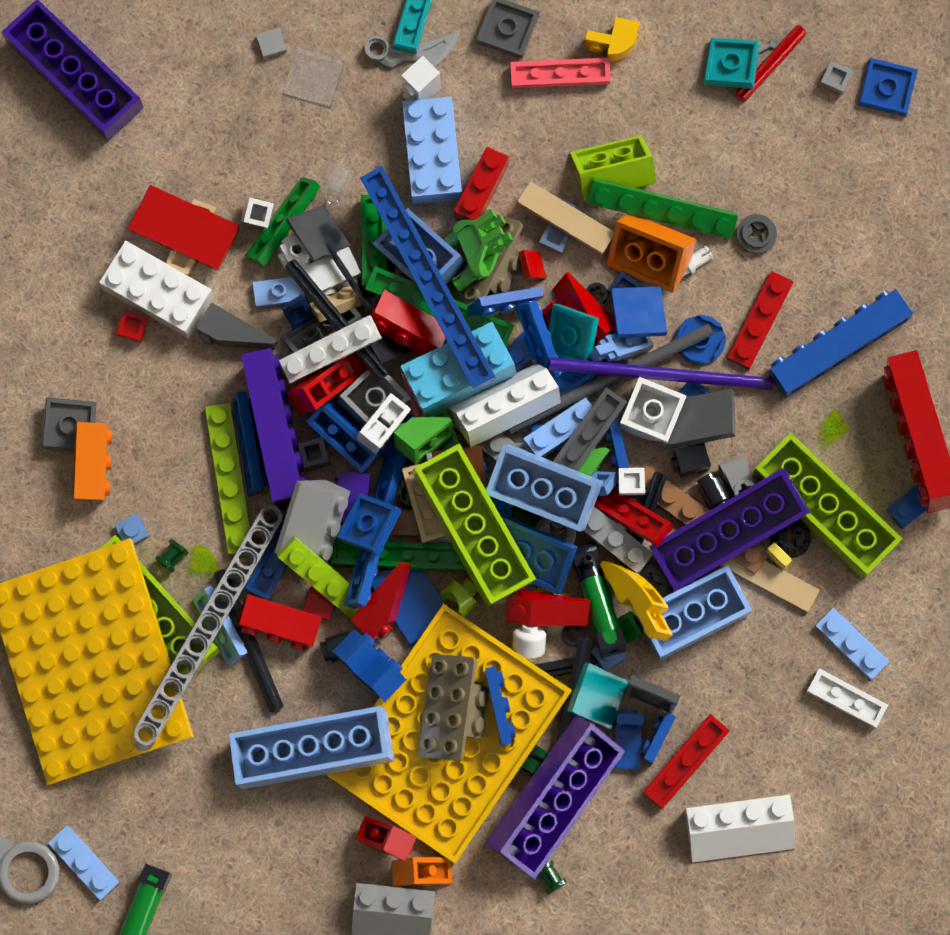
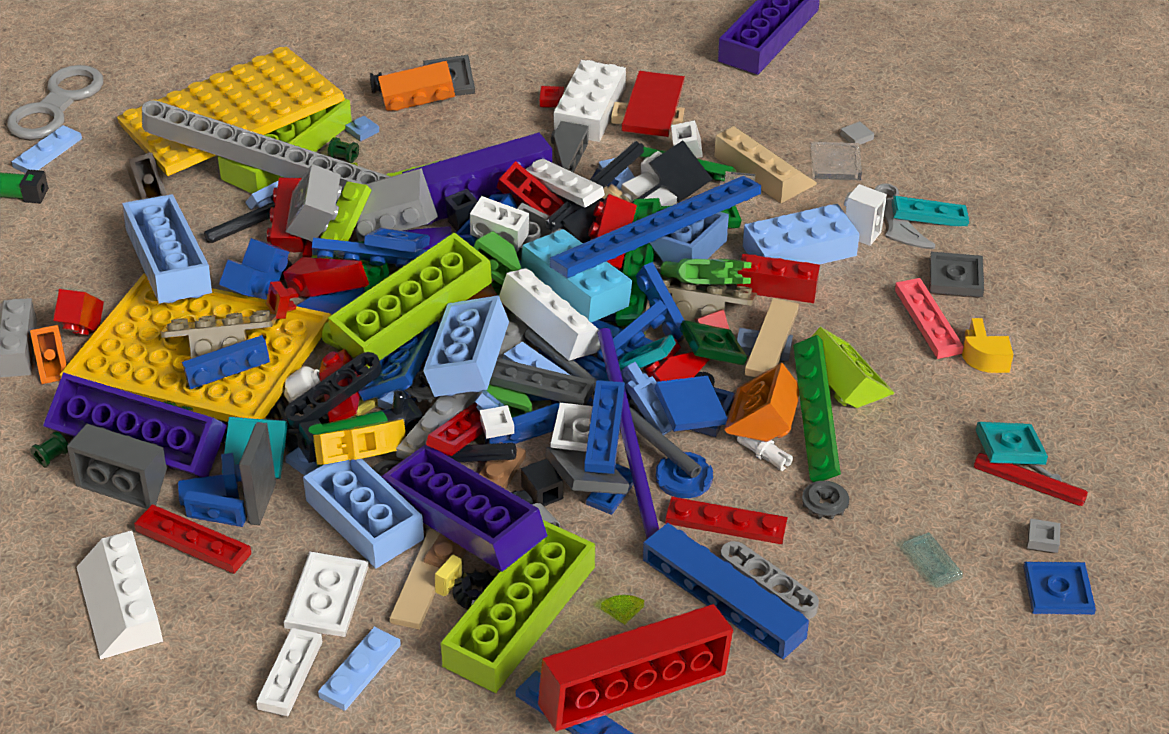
camera: 75 degrees right, 35 degrees down
(59, 502) = (374, 81): none -> black bush
(172, 761) = (145, 176): none -> dark brown slope
(303, 148) = (772, 172): none -> tan slope
(303, 595) = (314, 203): none -> light grey brick
(424, 647) = (279, 299): none -> red tile
(565, 271) = (713, 342): none -> dark green tile
(565, 616) = (330, 387): none -> black beam
(601, 813) = (117, 466): none -> dark grey slope
(668, 391) = (604, 427): none -> blue plate
(769, 658) = (326, 594): none -> white tile
(831, 304) = (772, 577): none -> light grey beam
(838, 172) = (933, 560): none -> clear light blue tile

